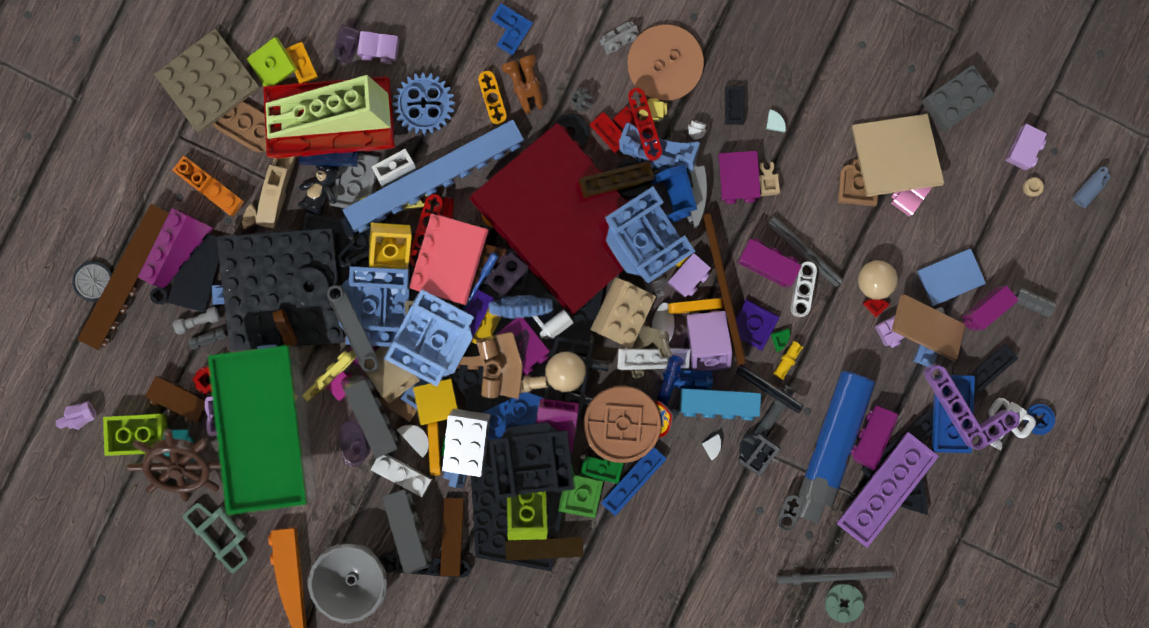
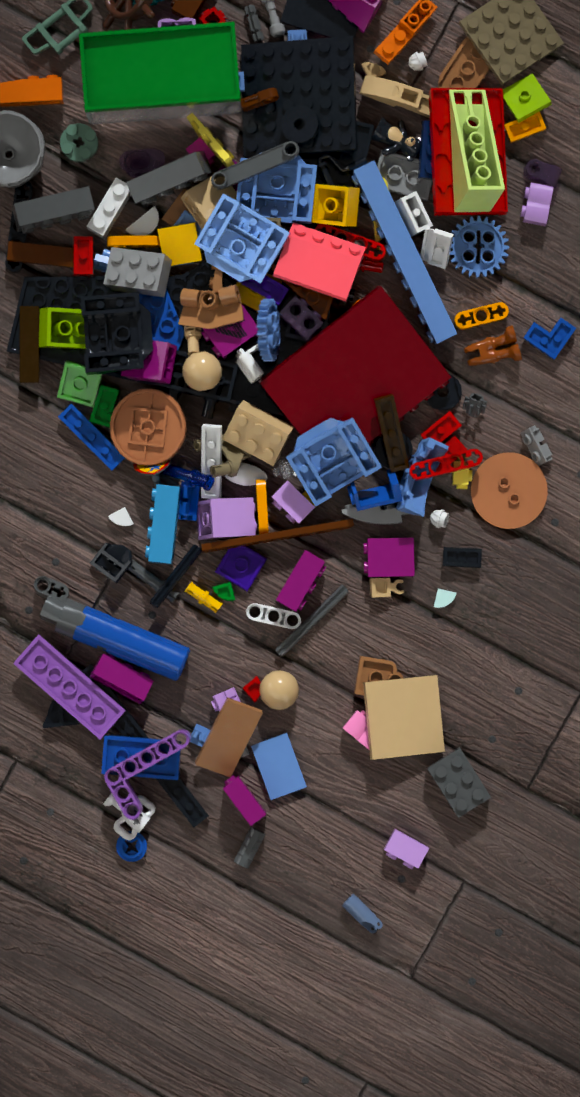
camera: 90 degrees right, 0 degrees up
(239, 172) = (417, 61): none -> white plate
(327, 515) = (84, 152): none -> sand green plate
(426, 144) = (436, 247): none -> white plate
(451, 499) = (83, 255): none -> red plate
(485, 271) = (304, 296): blue piece -> none
(1033, 187) = (365, 854): tan tile -> none

